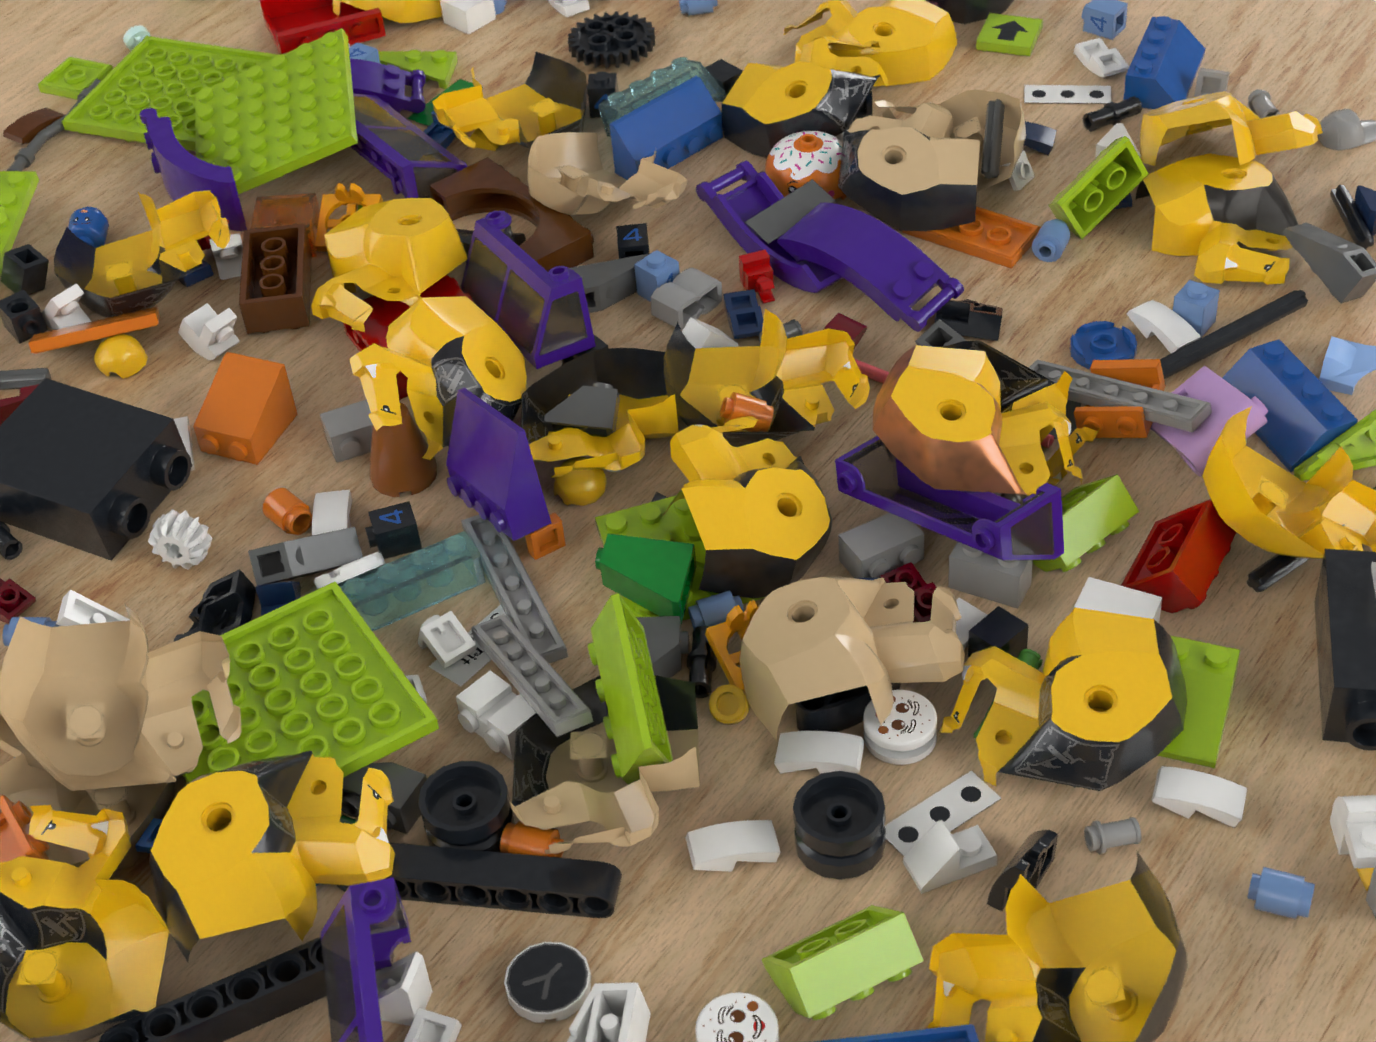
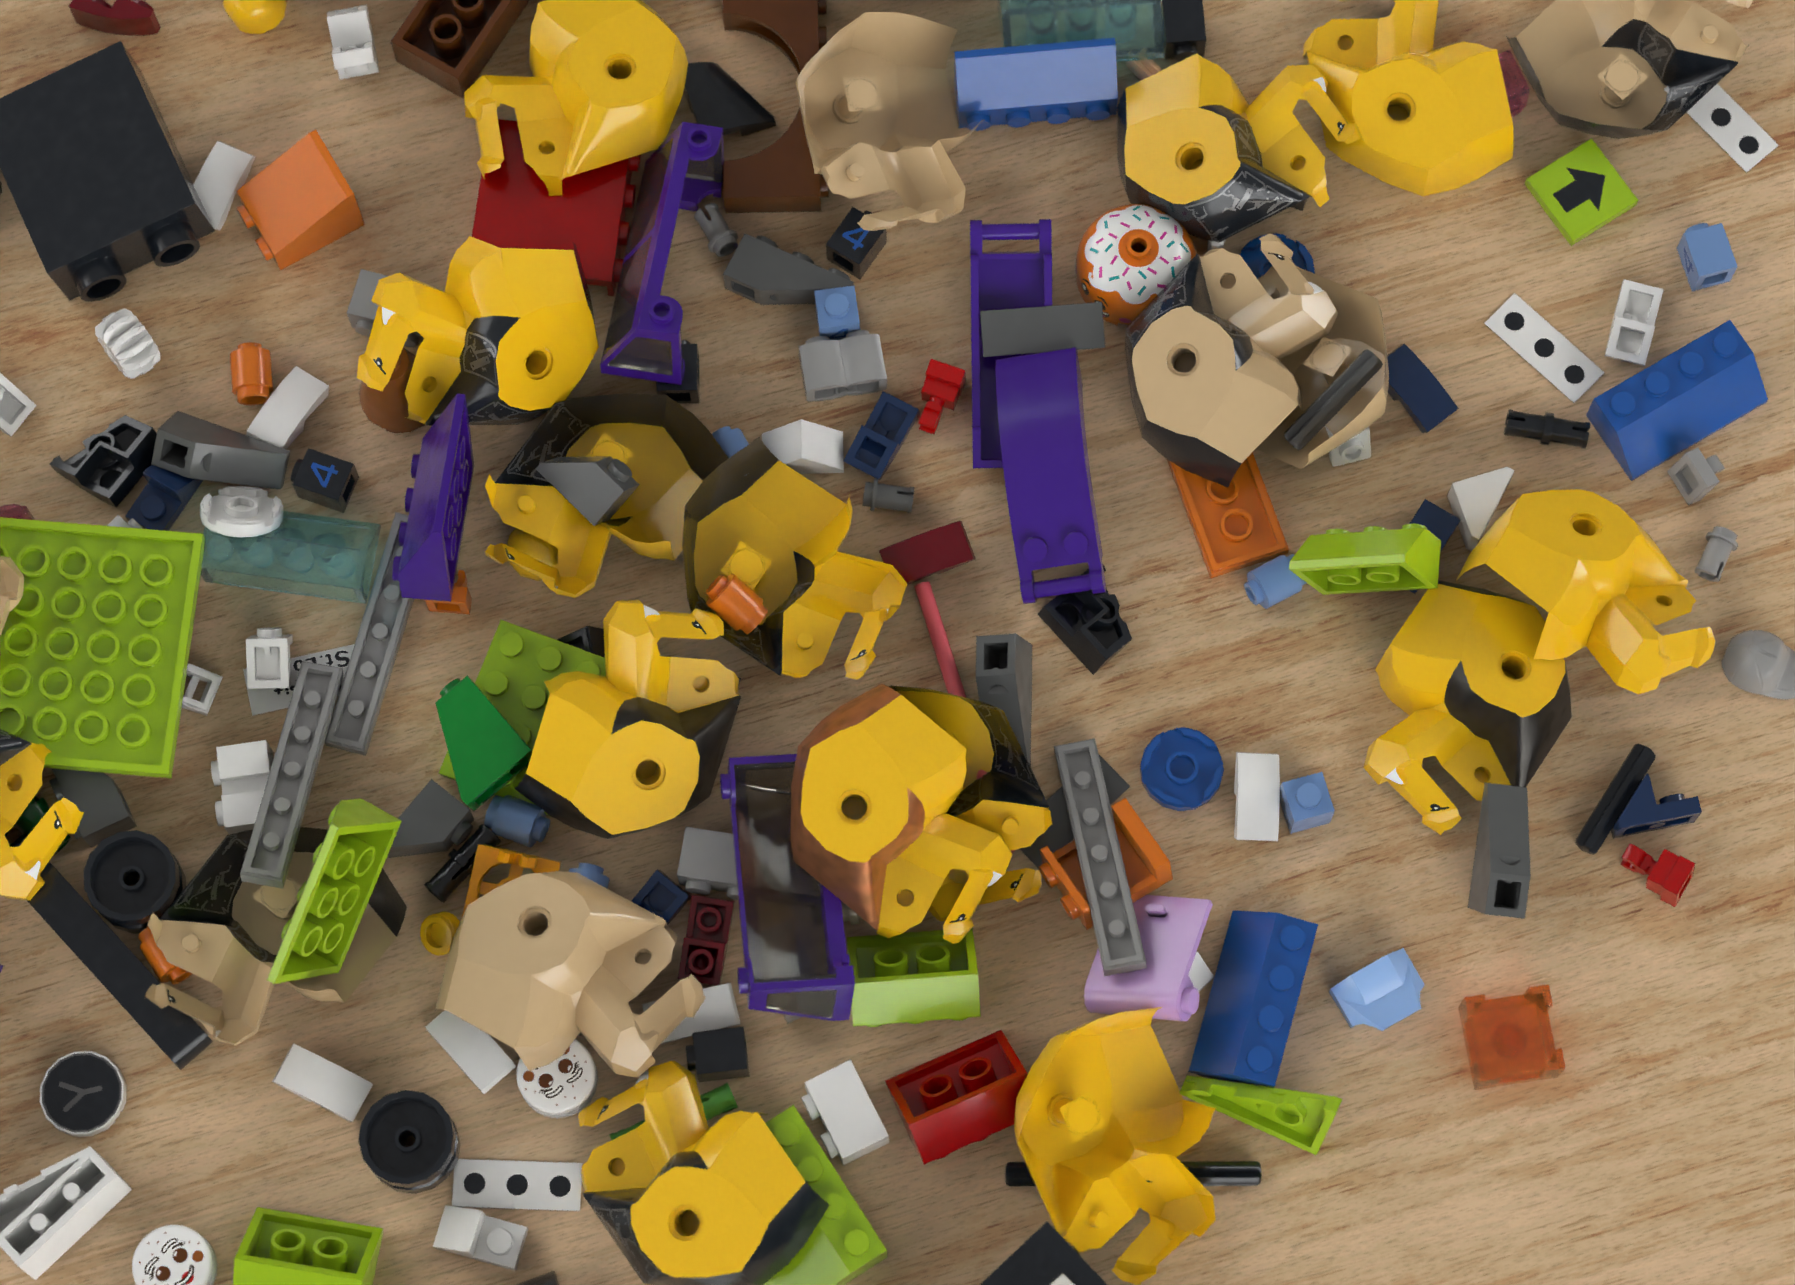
camera: 35 degrees right, 30 degrees up
(1233, 332) = (1314, 858): black axle -> none

